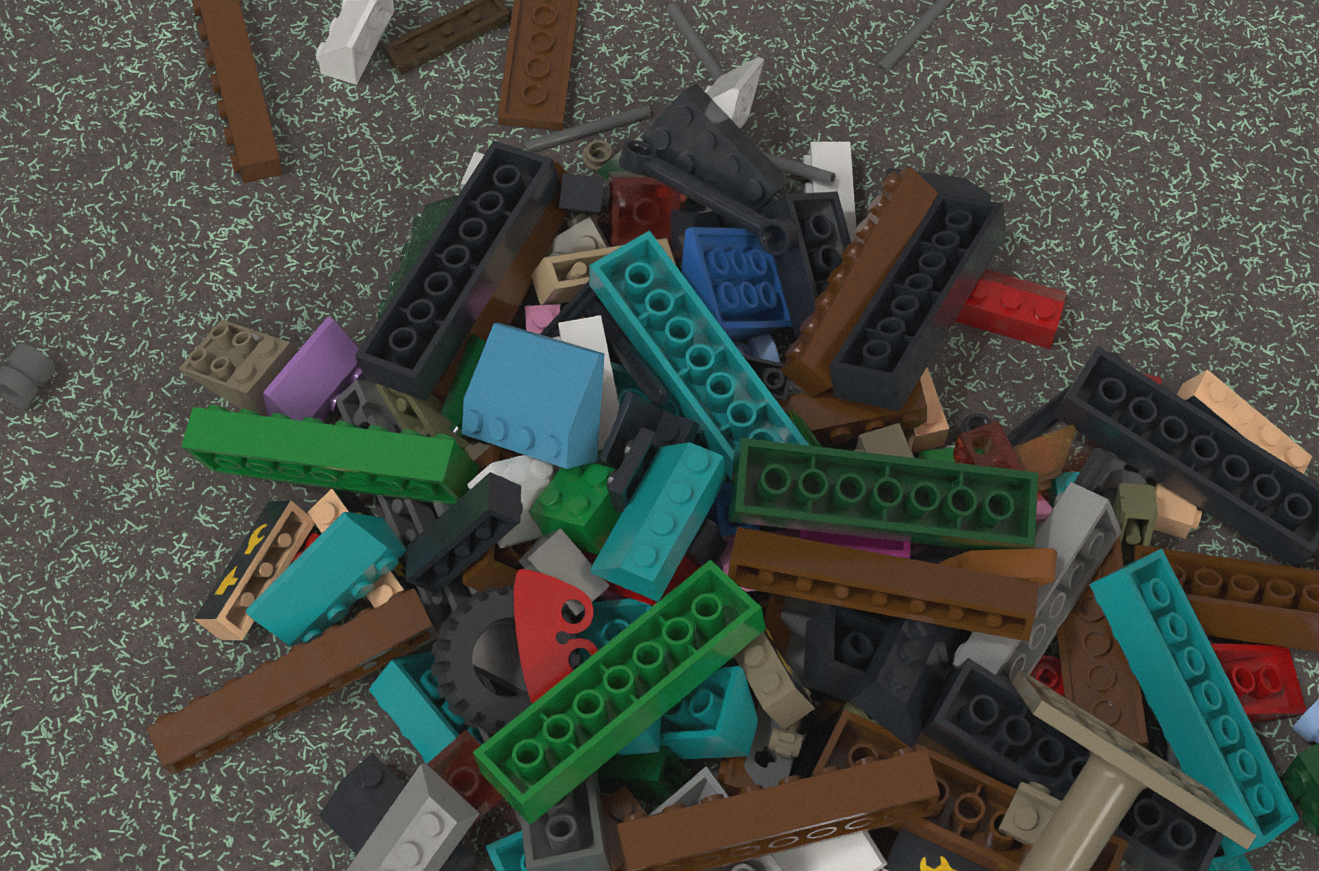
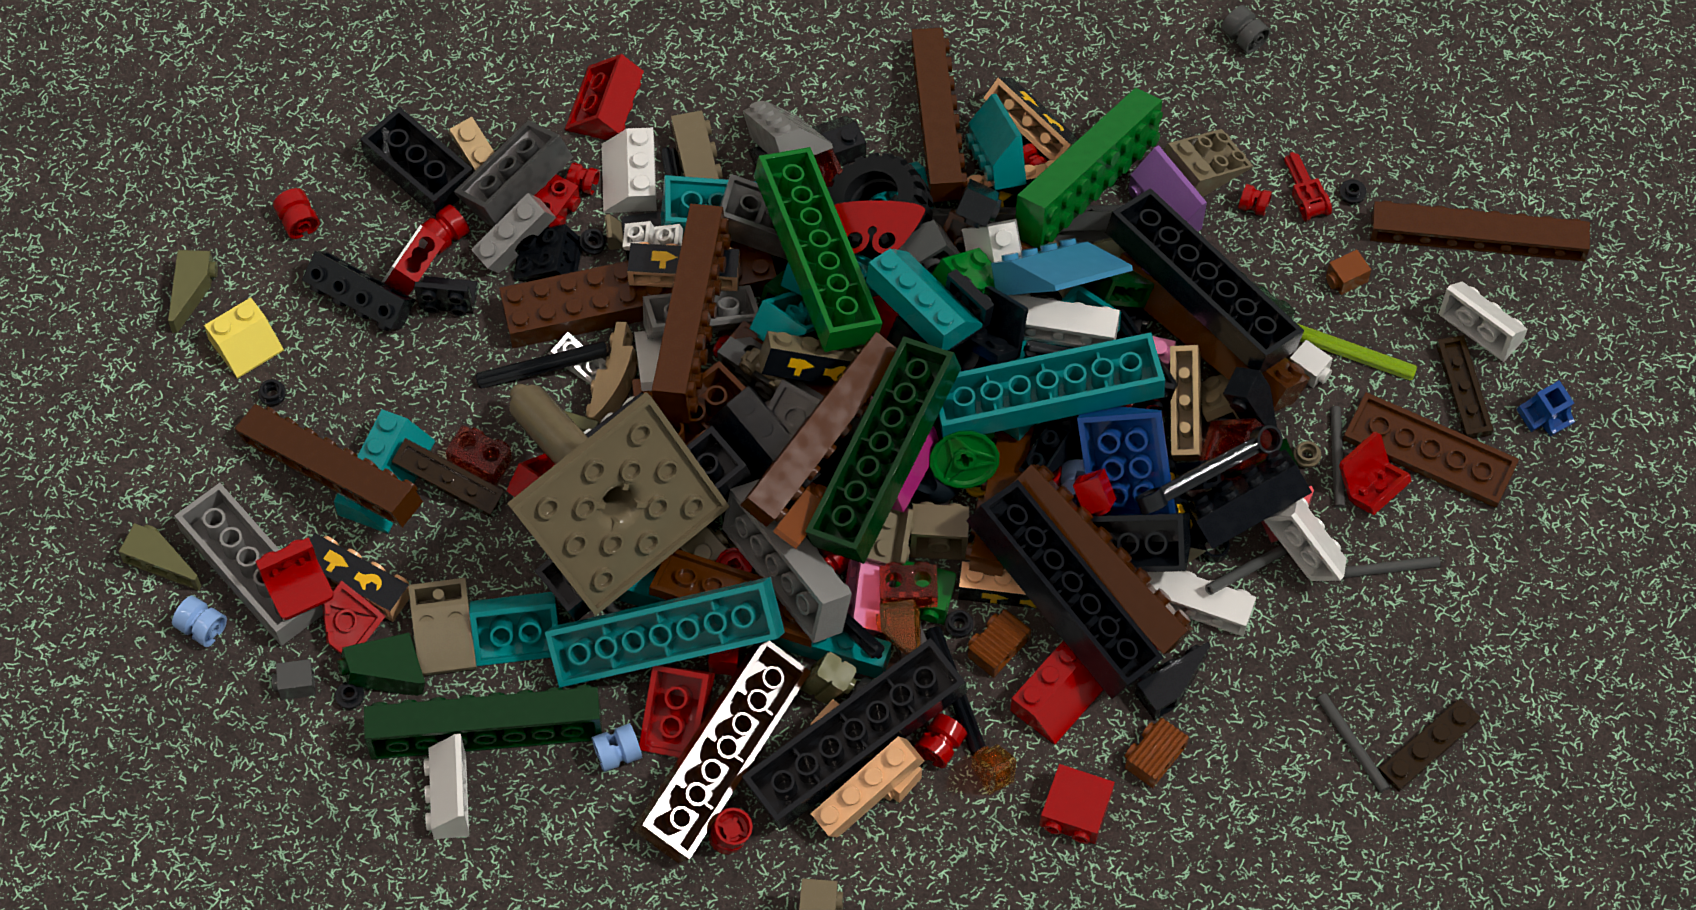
camera: 115 degrees right, 0 degrees up
(226, 211) = (1352, 197): none -> black plate
(243, 246) = (1307, 193): none -> red connector
(277, 295) = (1249, 198): none -> red wheel
(343, 175) = (1348, 272): none -> dark orange brick
(444, 140) = (1359, 353): none -> lime axle
(610, 76) = (1370, 476): none -> red bracket
(781, 309) = (1095, 492): none -> red brick
(983, 378) = (998, 642): none -> dark orange brick
(1031, 190) = (1155, 752): none -> dark orange brick
(1131, 242) = (1076, 804): none -> red piece
(1138, 326) = (994, 767): none -> clear orange slope

